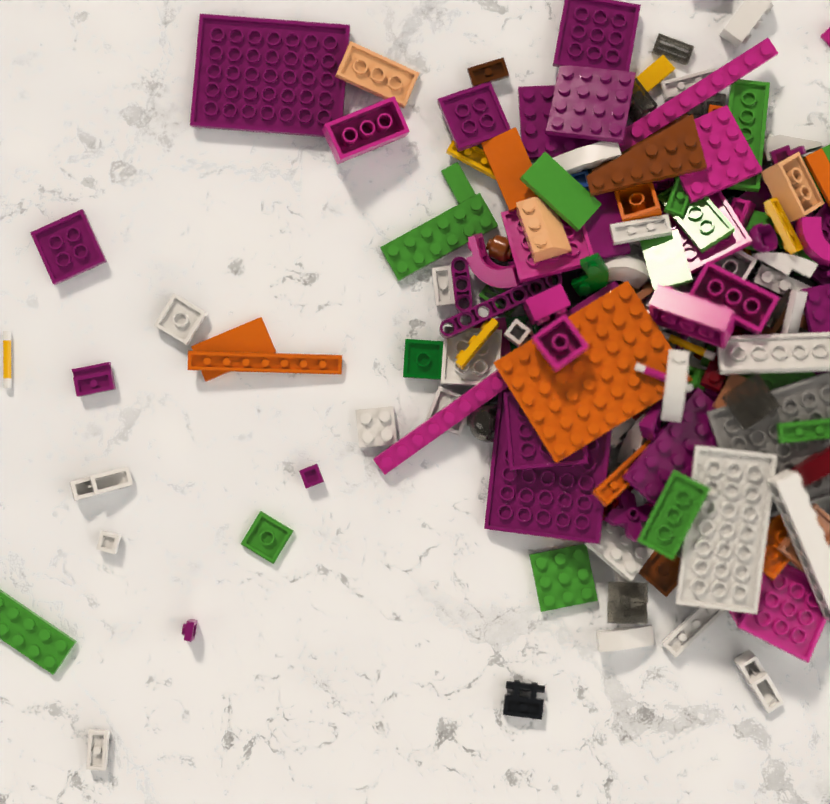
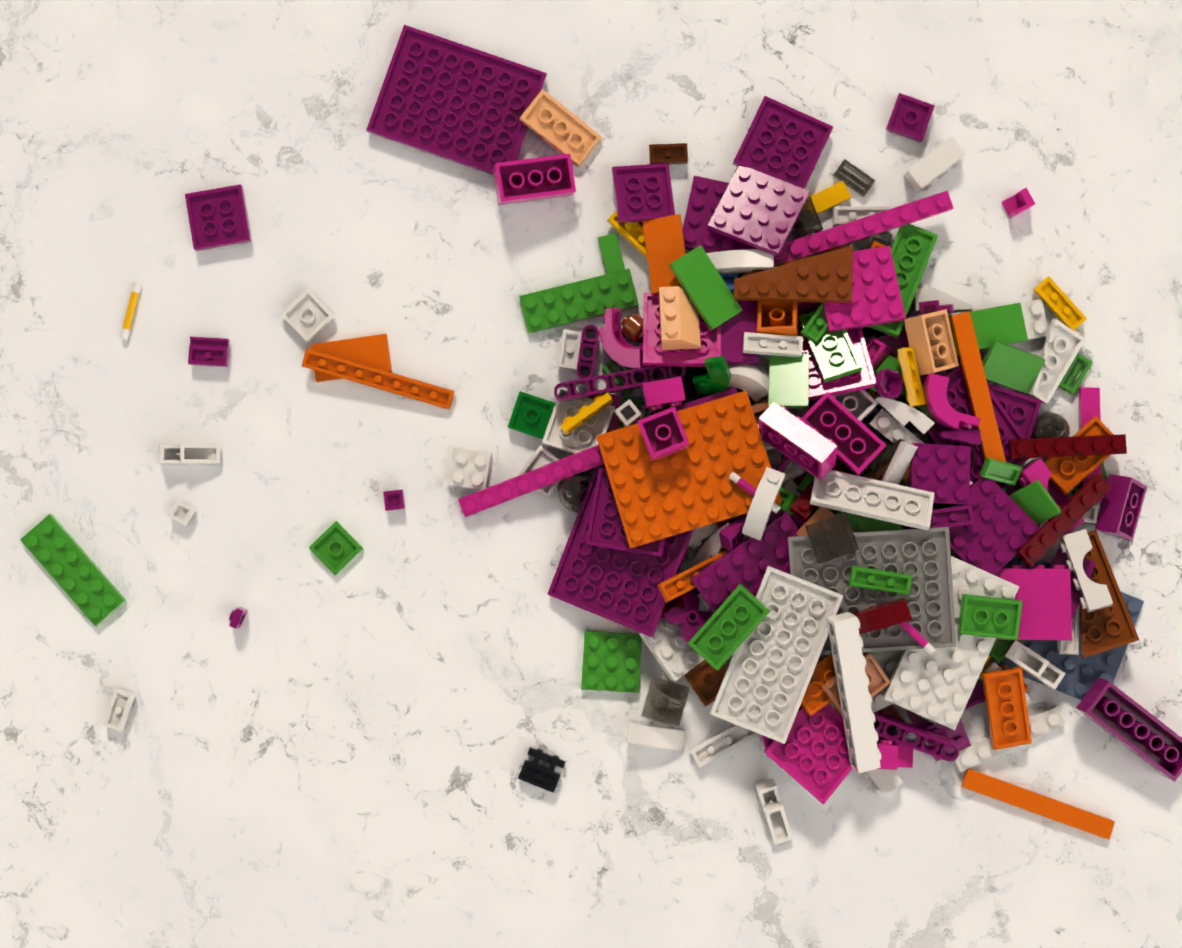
camera: 10 degrees right, 0 degrees up
(689, 346) = (788, 468): yellow bar -> none

